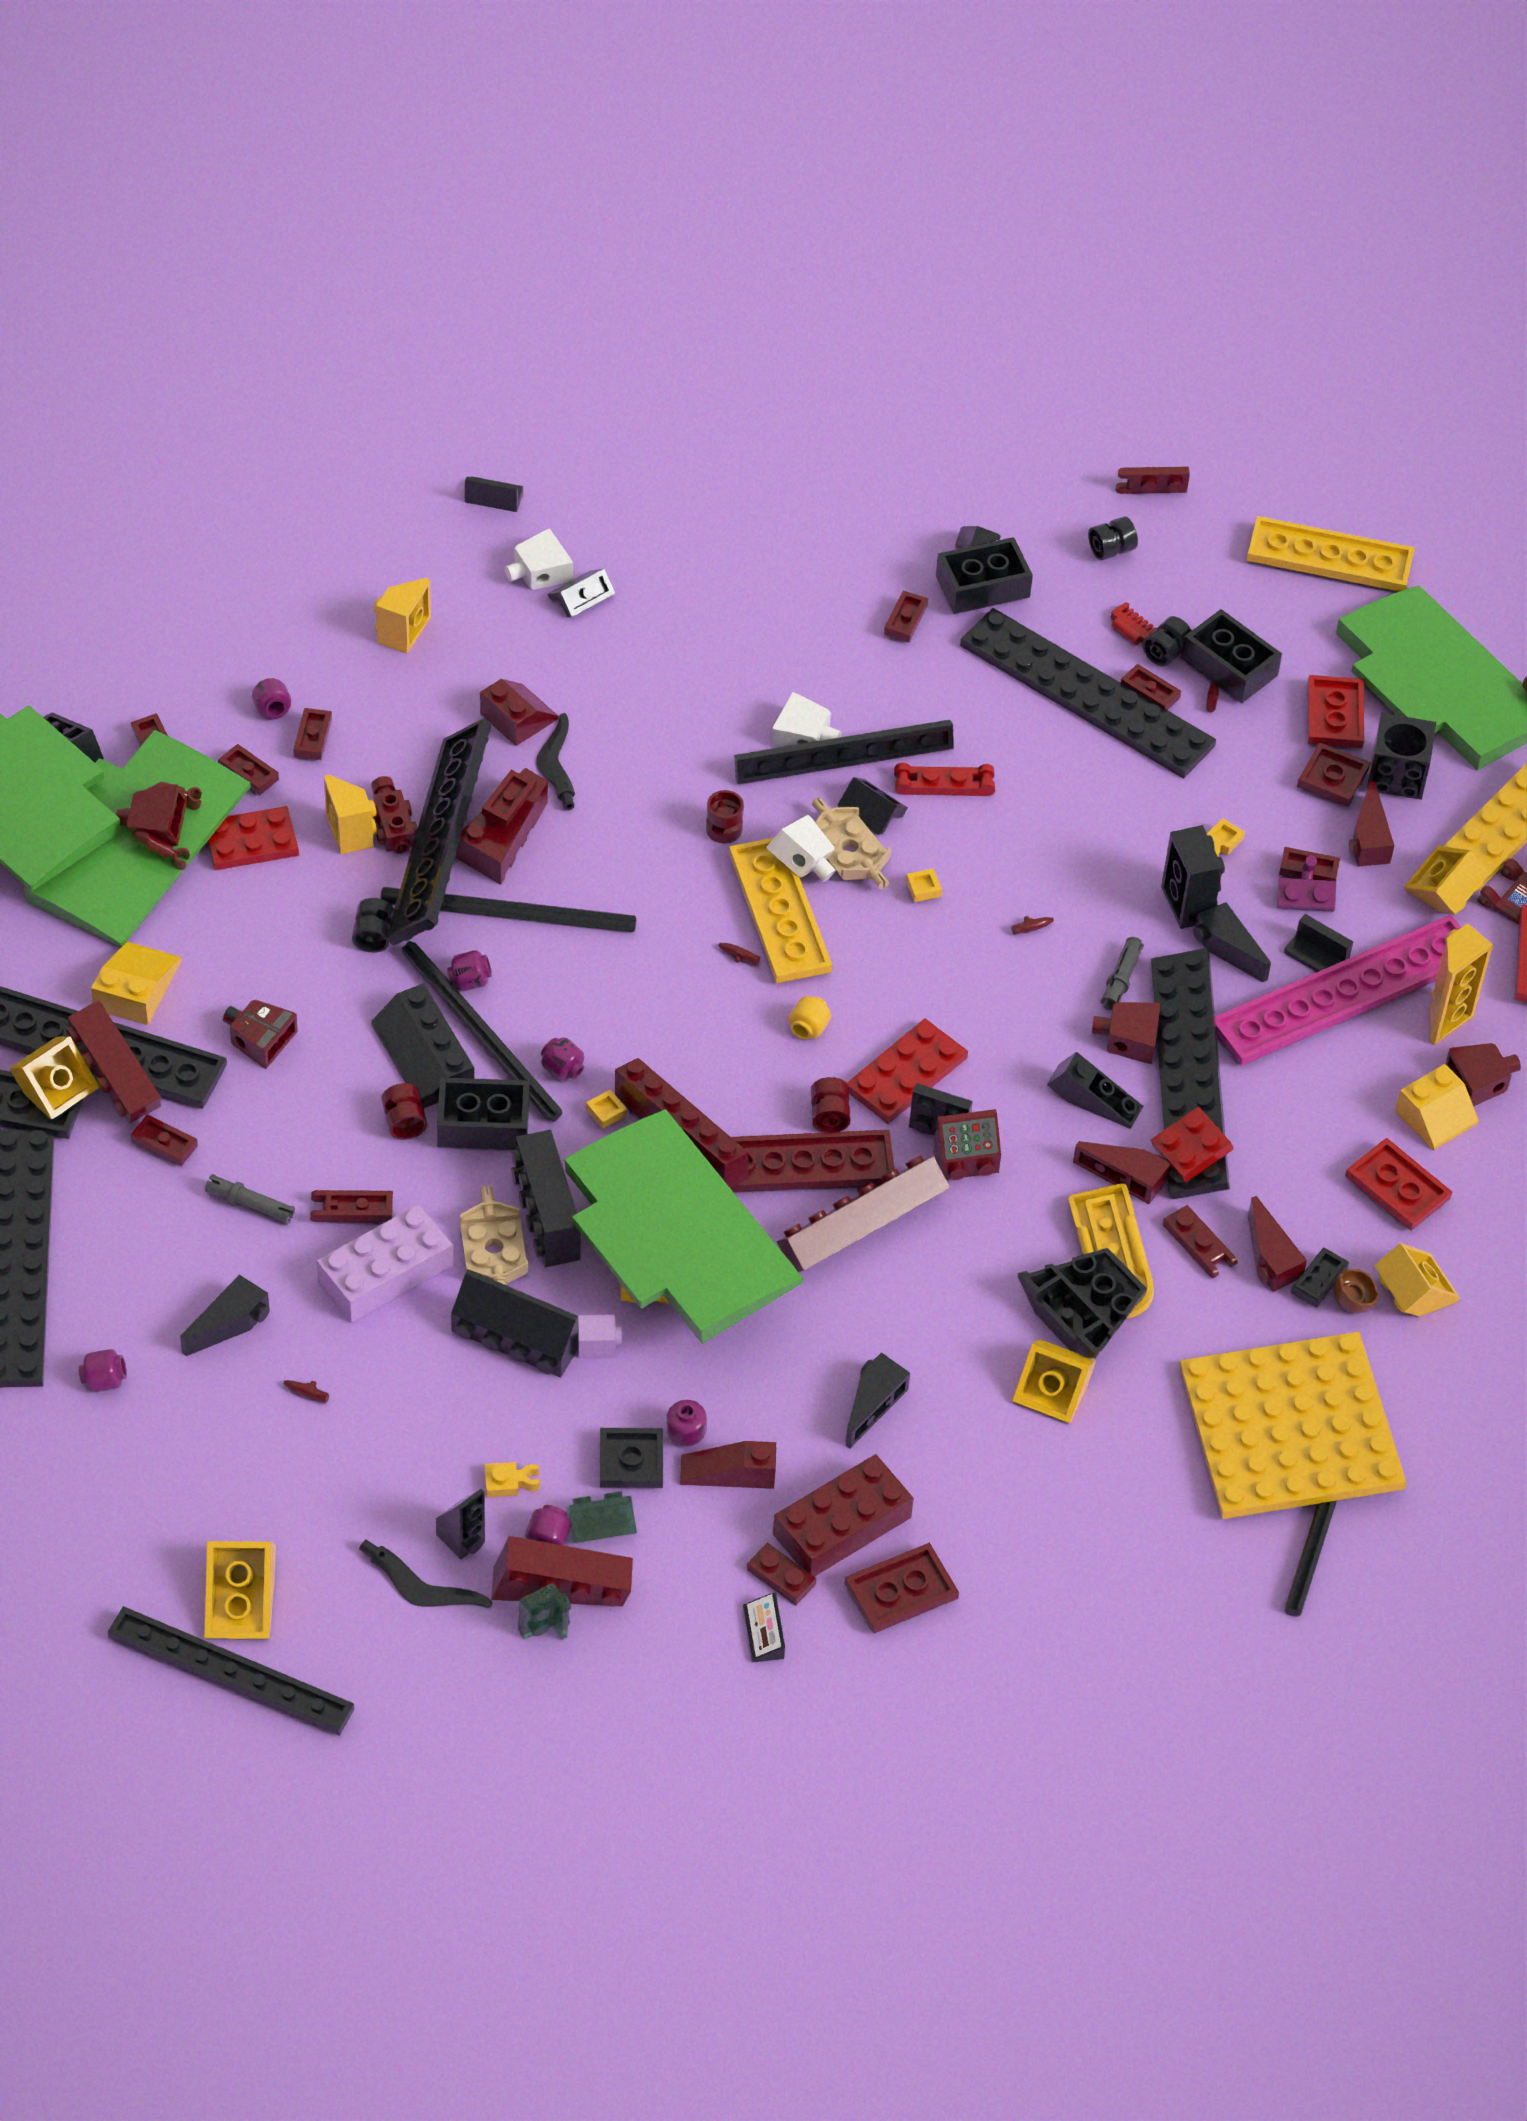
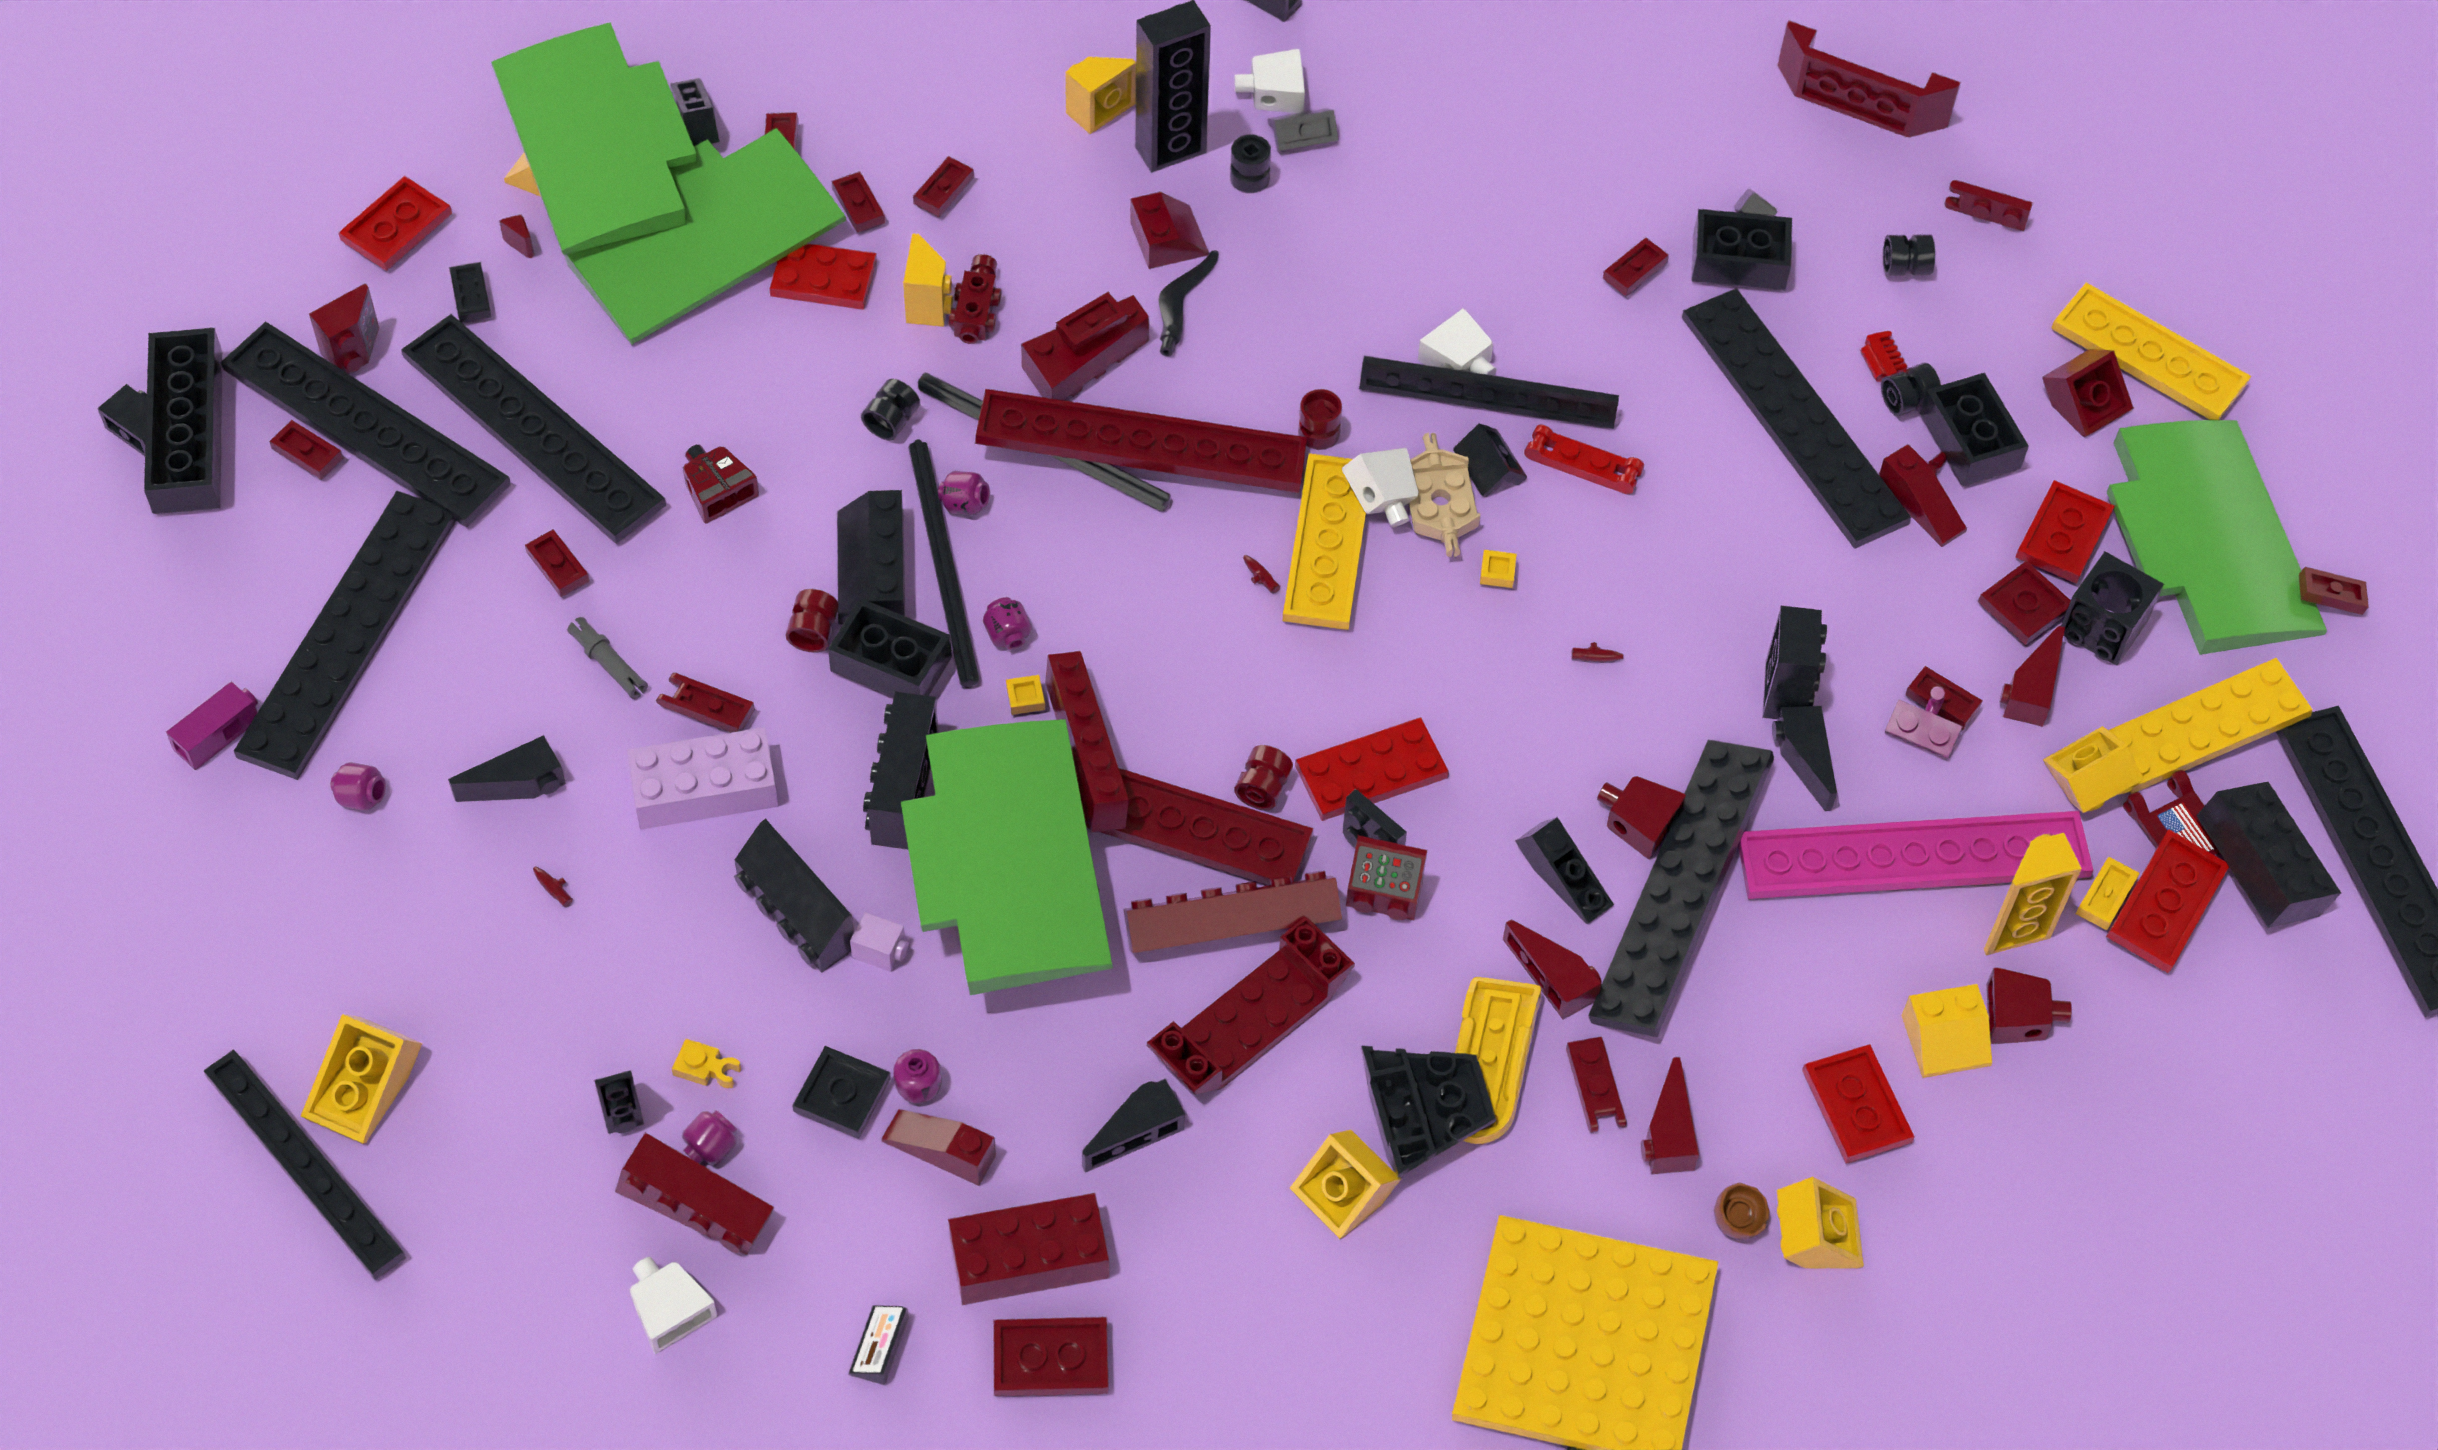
camera: 25 degrees right, 5 degrees up
(55, 1076) = (478, 457): yellow slope -> none
(112, 1062) = (539, 464): dark red wedge -> none
(134, 981) = (621, 384): yellow slope -> none
(158, 818) = (725, 219): dark red torso -> none
(271, 698) = (921, 135): magenta head -> none
(413, 1588) = (540, 1144): black piece -> none
(438, 833) = (1006, 334): black plate -> none
(480, 587) = (1172, 85): none -> black brick
(491, 1225) = (826, 776): tan plate -> none
(543, 1610) = (646, 1229): bracket -> none
(558, 633) = (1250, 163): none -> black wheel
(586, 1661) = (669, 1303): none -> white torso
(591, 880) = (1141, 440): none -> dark red plate
(601, 1518) = (772, 1148): clear green bracket -> none
(781, 1573) = (932, 1287): dark red plate -> none
(809, 1017) = (1294, 672): yellow head -> none
(920, 1276) = (1255, 1011): none -> dark red slope
(1010, 420) = (1862, 91): none -> dark red slope
(1118, 982) = (1657, 753): dark grey pin -> none
(1151, 687) = (1866, 433): dark red plate -> none
(1192, 1144) = (1636, 970): red plate -> none
(1216, 718) = (1922, 494): none -> dark red slope
(1226, 837) = (1857, 631): yellow plate -> none
(1300, 598) = (2089, 390): none -> dark red slope
(1318, 945) = (1906, 792): black panel -> none
(1319, 1277) = (1709, 1178): black plate -> none
(1501, 968) = (2107, 893): none -> yellow plate

